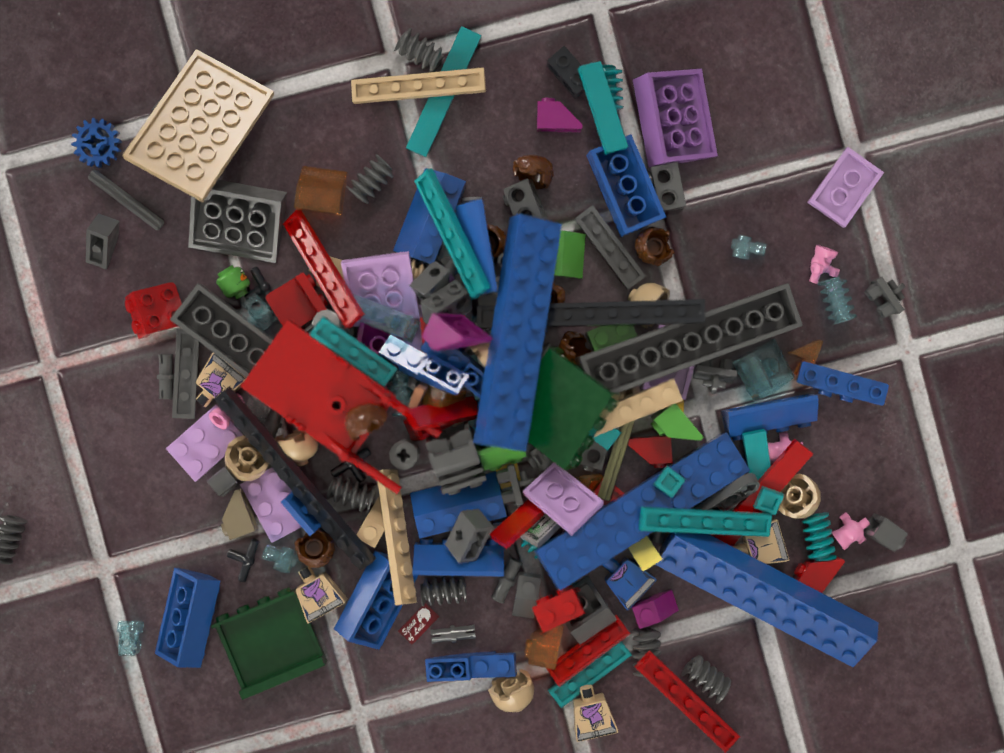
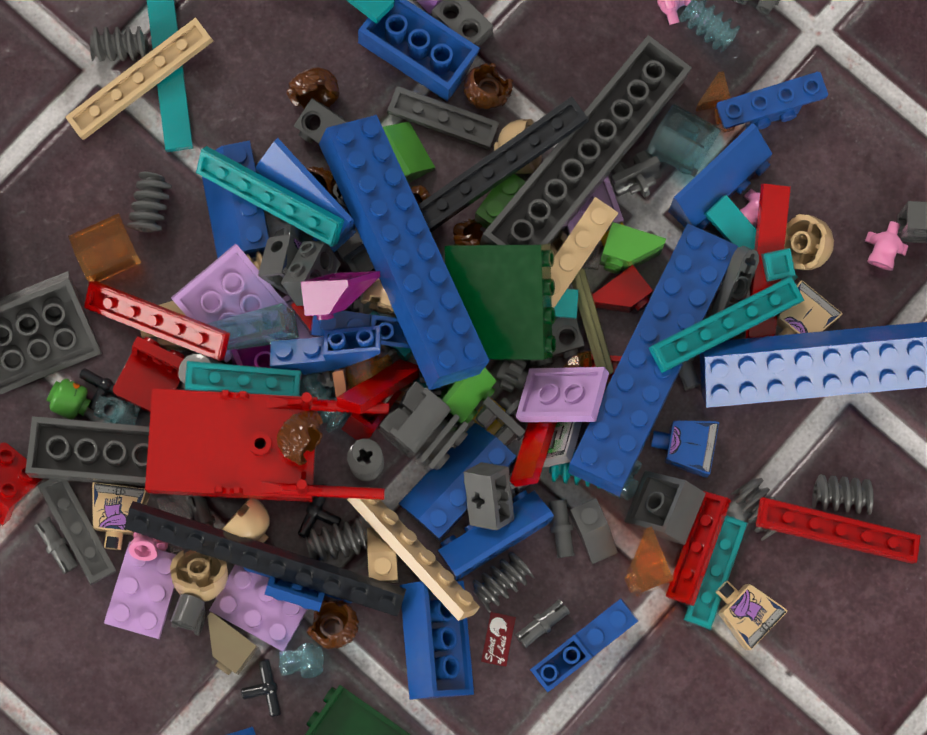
camera: 30 degrees left, 10 degrees down
(318, 594) = (368, 673): torso -> none
(512, 693) = (647, 643): tan cylinder -> none
(555, 117) = (302, 24): magenta slope -> none
(559, 609) = (634, 512): red bracket -> none
(645, 553) = (685, 400): light yellow slope -> none
(654, 608) = (737, 458): magenta slope -> none
(669, 482) = (661, 306): teal tile -> none
(743, 247) = (580, 30): clear light blue plate -> none
(818, 573) = (882, 308): red slope -> none
(819, 537) = (856, 272): teal piece -> none

